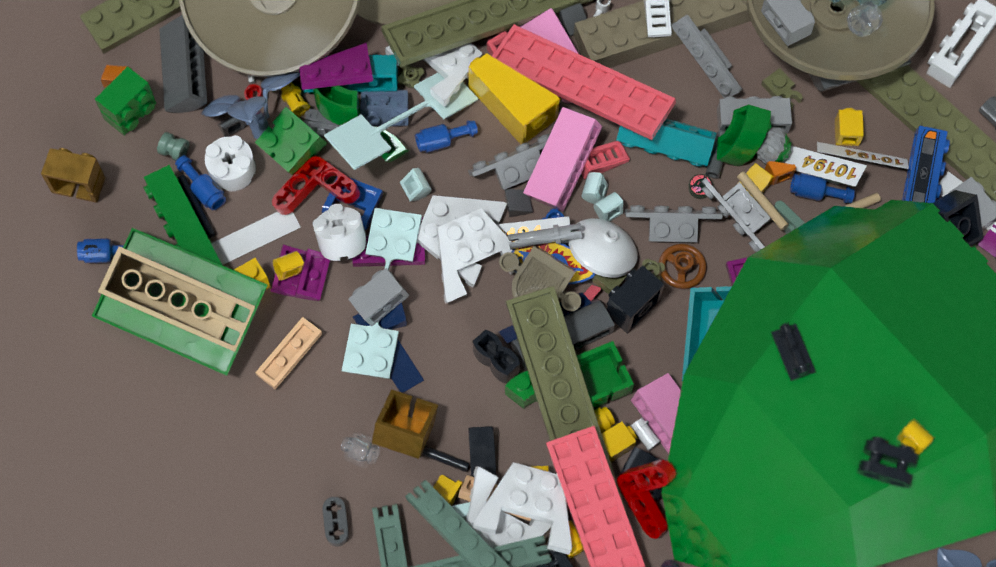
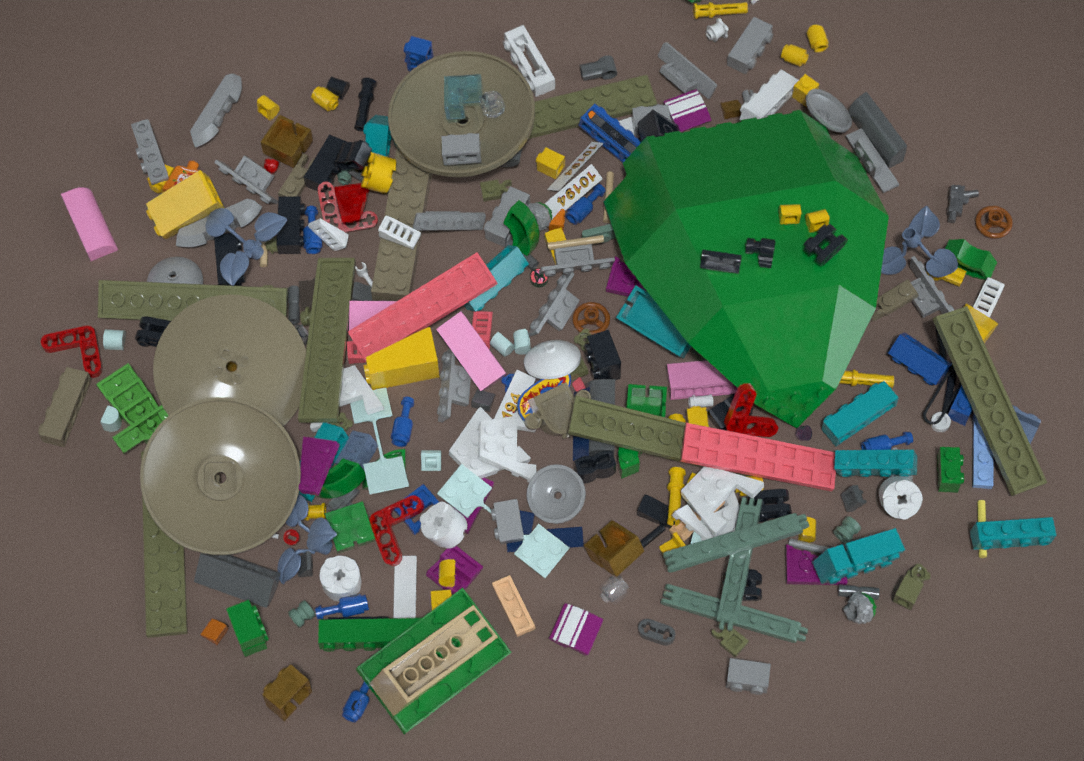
camera: 60 degrees left, 5 degrees down
(294, 432) = (576, 629): none -> magenta slope
(434, 319) = (546, 484): none -> light grey dish
(520, 455) = (674, 487): none -> yellow pin
(544, 236) = (530, 381): light grey pin -> none
(838, 396) = (764, 248): none -> black piece
(903, 400) = (790, 214): none -> yellow brick

